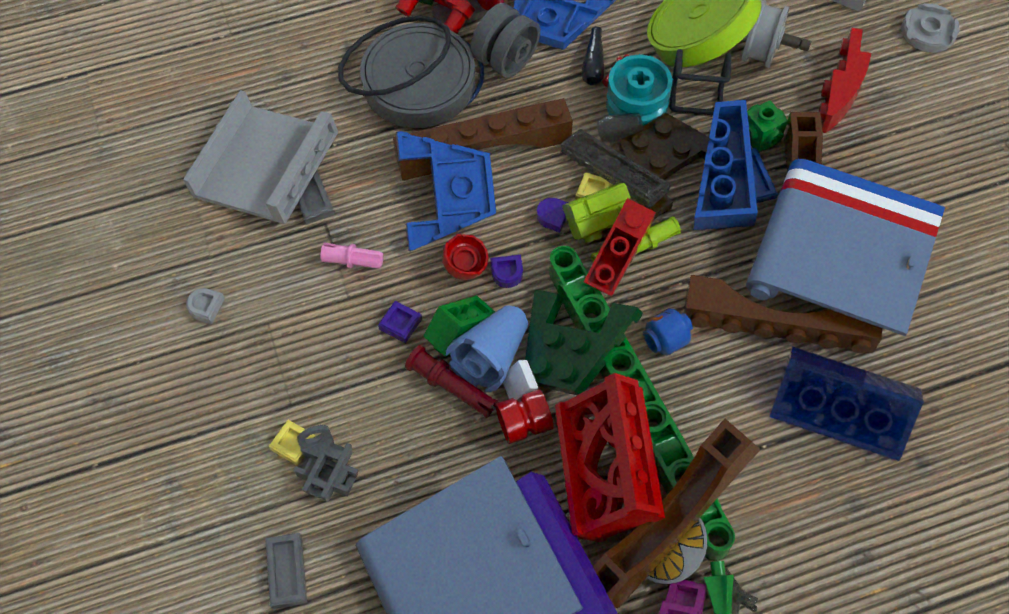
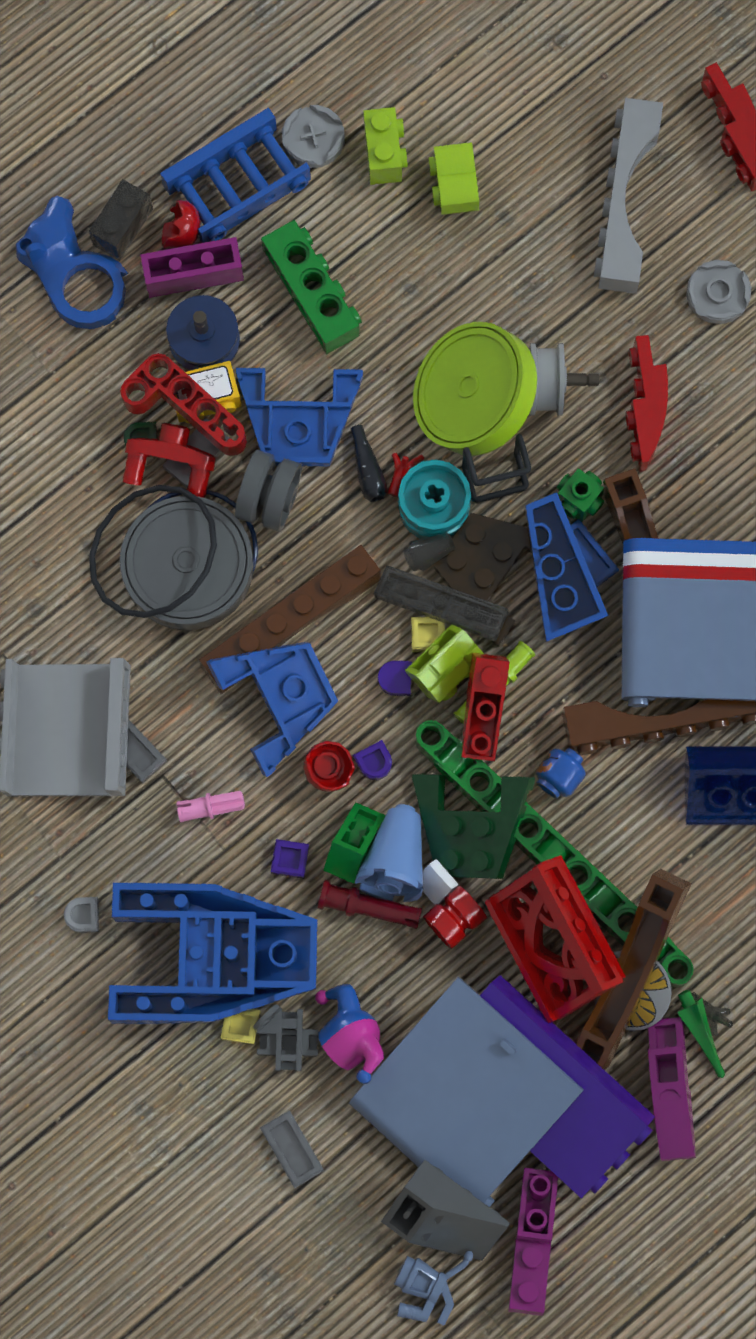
camera: 20 degrees left, 15 degrees up
(304, 375) = (230, 953): none -> blue wedge
(386, 483) = (351, 1033): none -> dark pink piece

